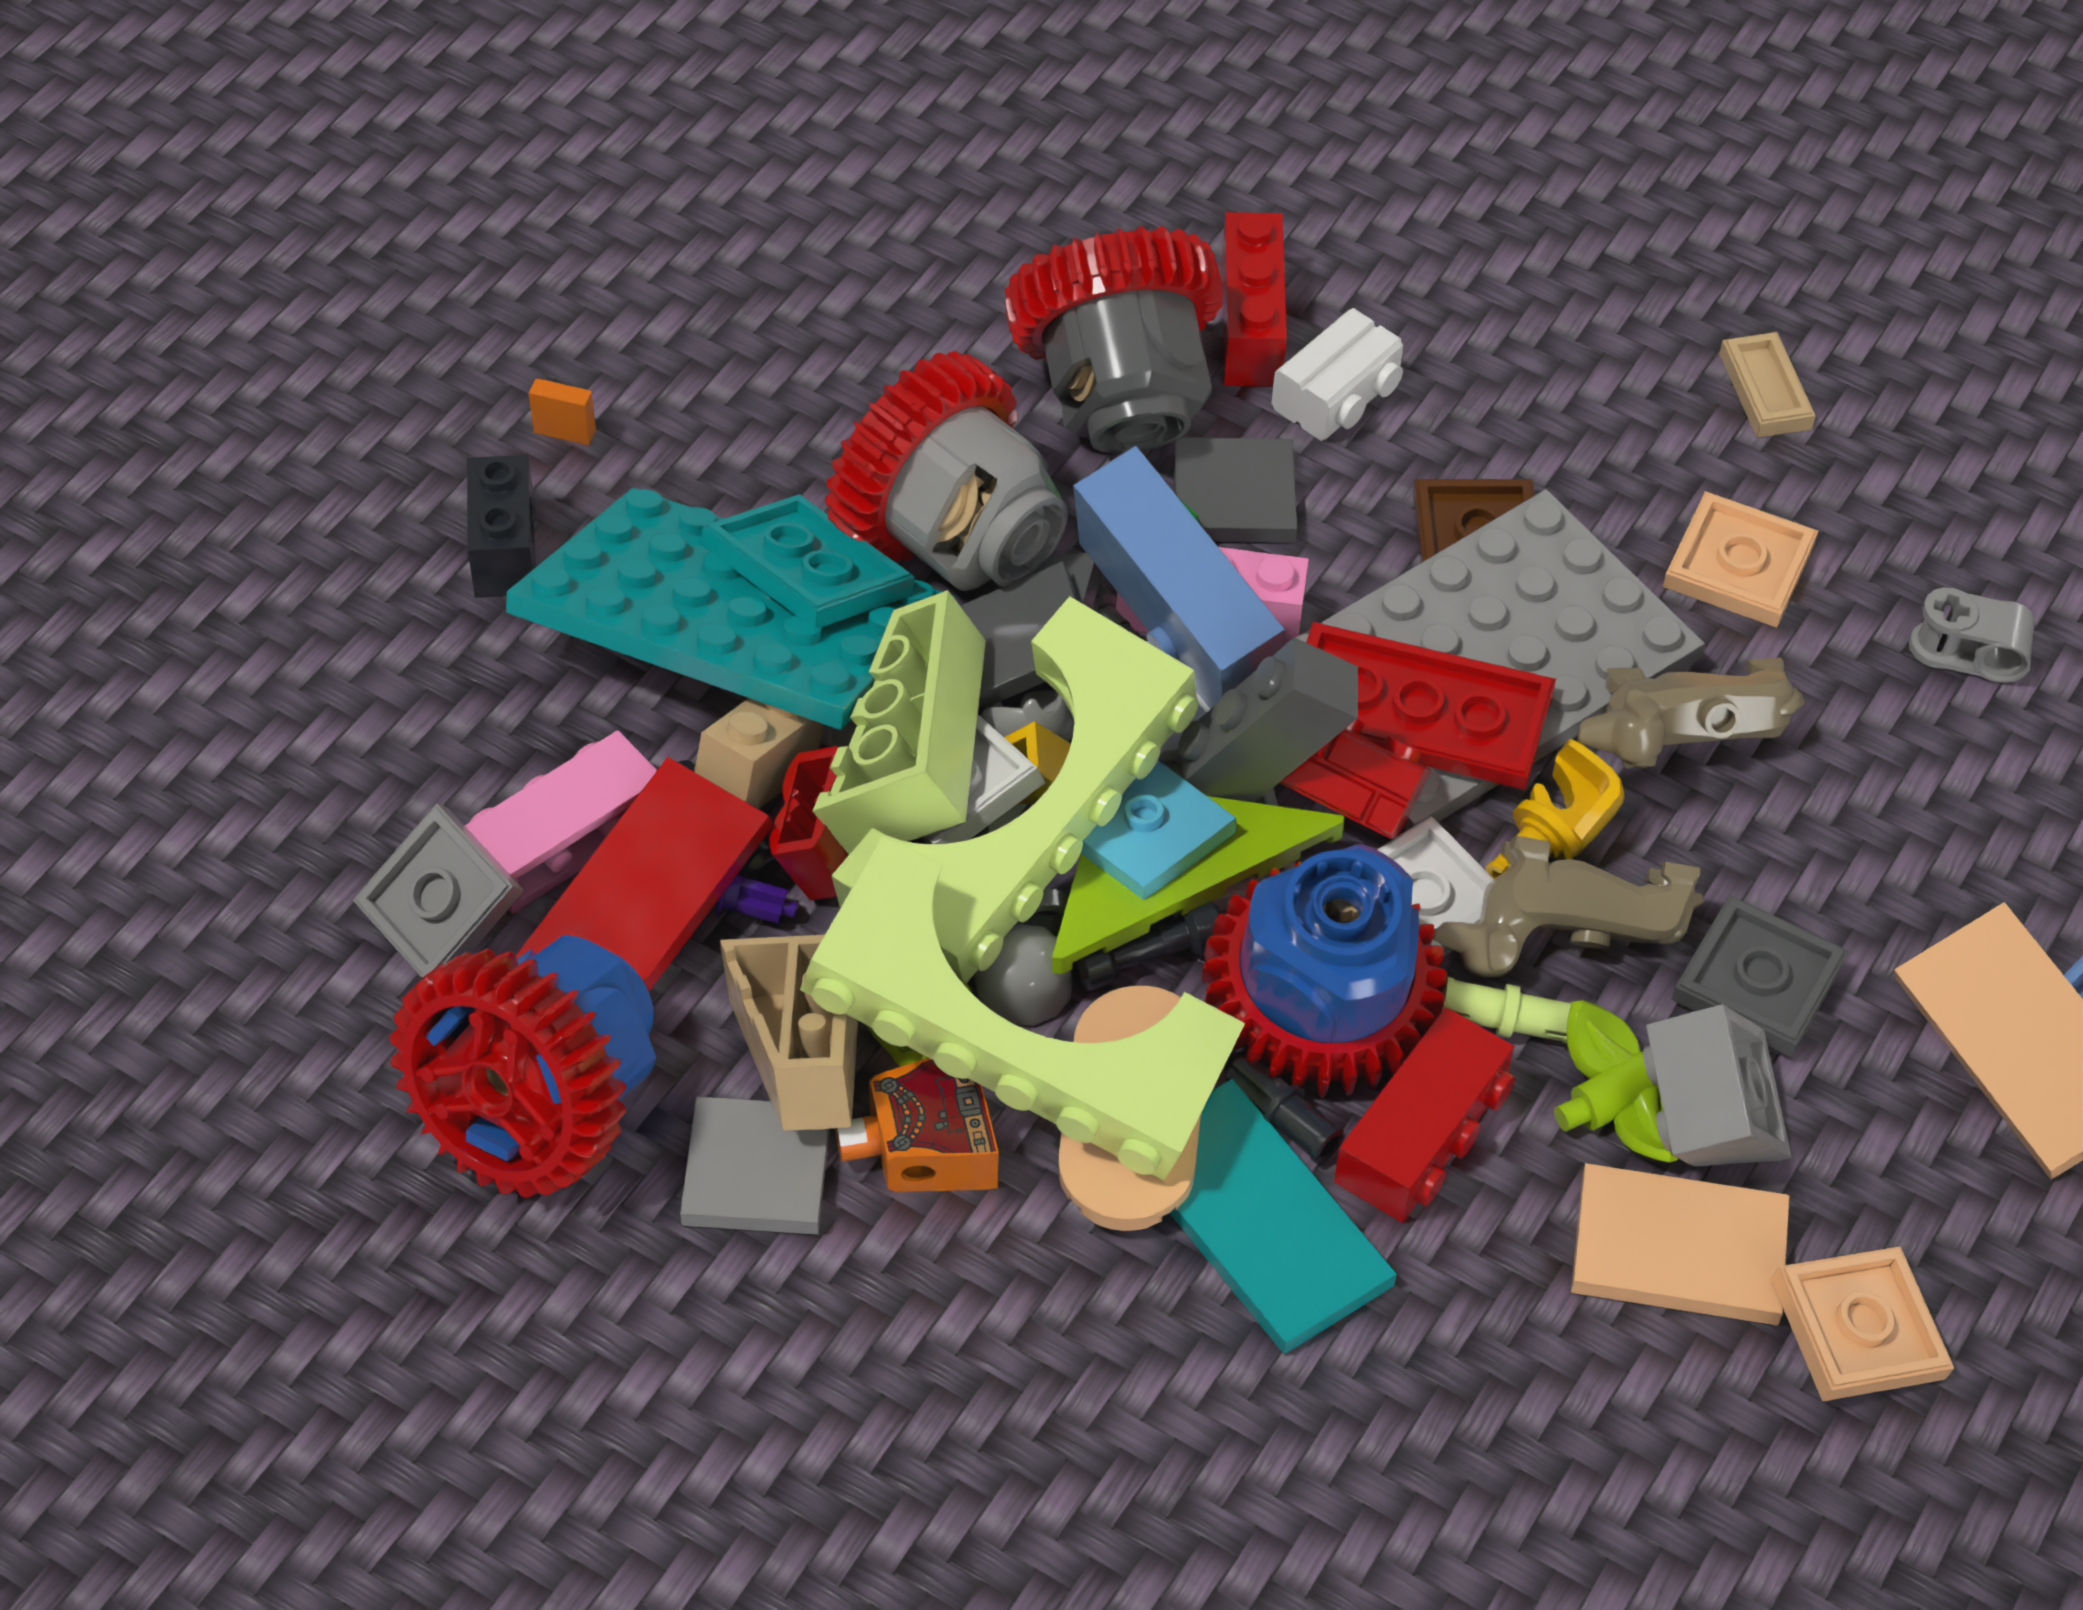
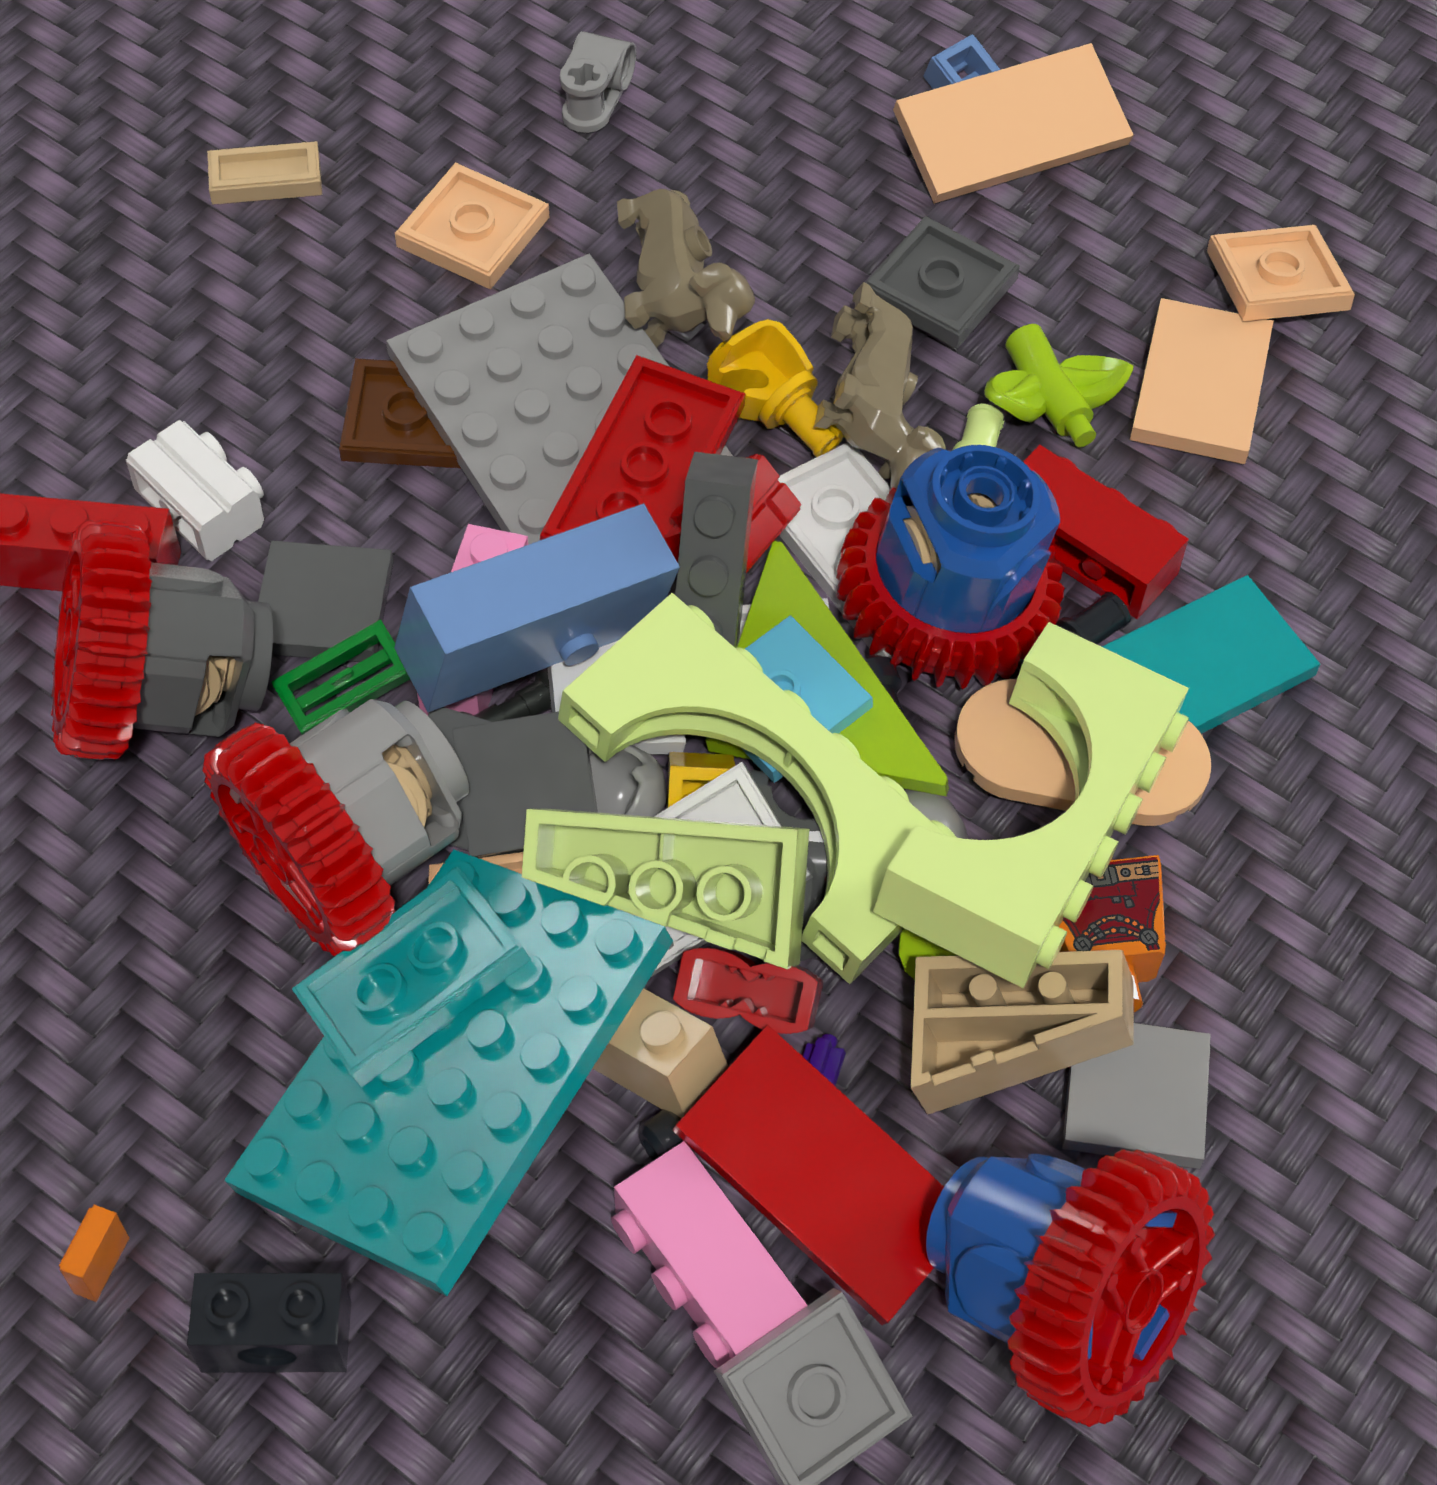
camera: 85 degrees left, 5 degrees up
(1715, 1089) = (1088, 310): light grey slope -> none

